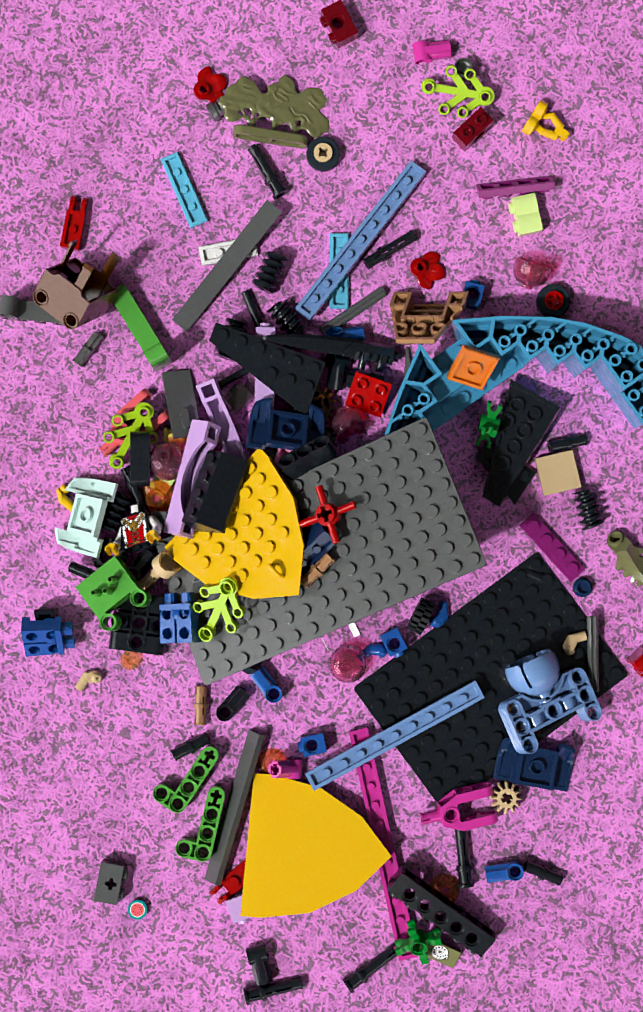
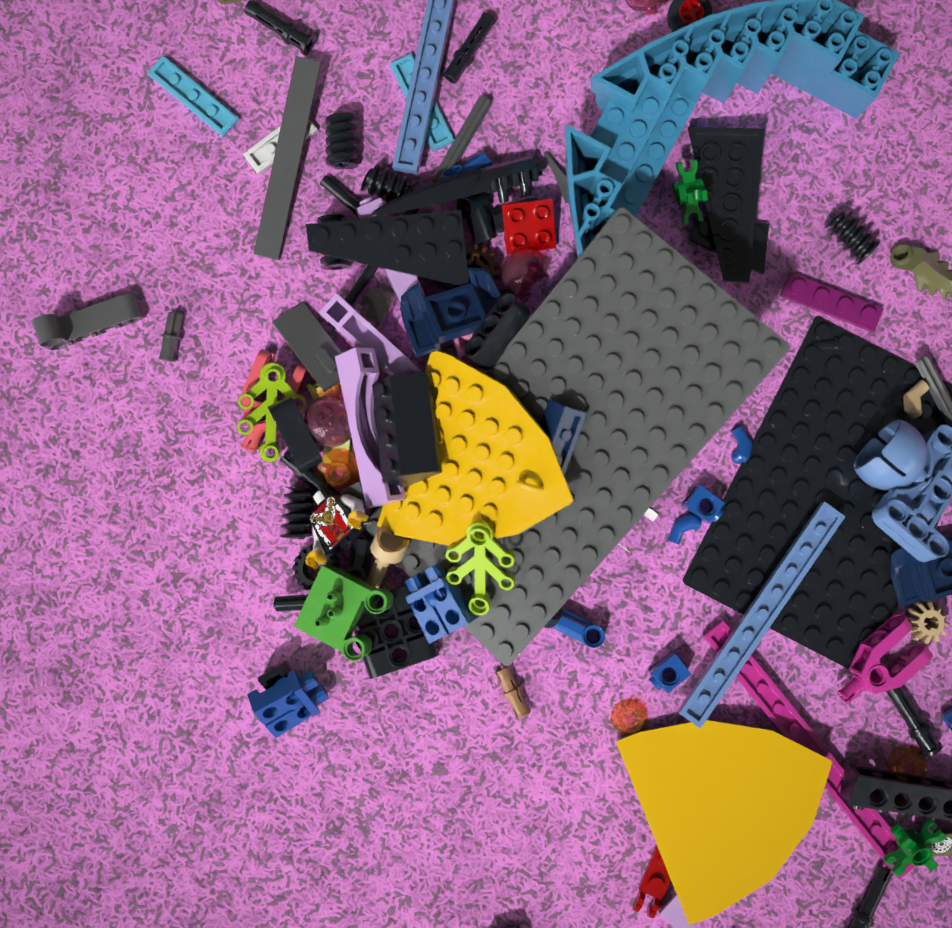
camera: 25 degrees left, 0 degrees up
(63, 498) = (228, 528): yellow arm -> none
(74, 224) = (83, 200): red hinge -> none
(76, 290) = (118, 270): piece -> none
(86, 515) = (265, 534): light aqua piece -> none
(88, 677) = (363, 725): tan arm -> none
(129, 660) = (402, 680): tile -> none
(141, 329) = (246, 296): bright green beam -> none
(190, 746) = (524, 747): black pin -> none
(192, 777) = (543, 783): bright green beam -> none
(206, 822) = (590, 827): bright green beam -> none
(233, 702) = (549, 669): black piece -> none
(234, 807) = (613, 794): dark grey tile -> none
(286, 768) = (654, 716): dark pink piece -> none
(317, 570) = (579, 459): medium nougat pin -> none
(320, 516) = (569, 385): red bar -> none
(354, 658) = (659, 545): clear pink cylinder -> none
(421, 616) = (722, 457): black tyre -> none
(424, 322) = (556, 105): medium nougat wedge -> none
(430, 271) = (528, 49): red plate -> none
(472, 367) = (643, 123): orange tile -> none
(478, 288) = (588, 63): blue brick -> none
(557, 473) = (795, 211): tan tile -> none
(567, 443) = (788, 171): black pin -> none
(582, 587) = (890, 331): dark blue plate -> none

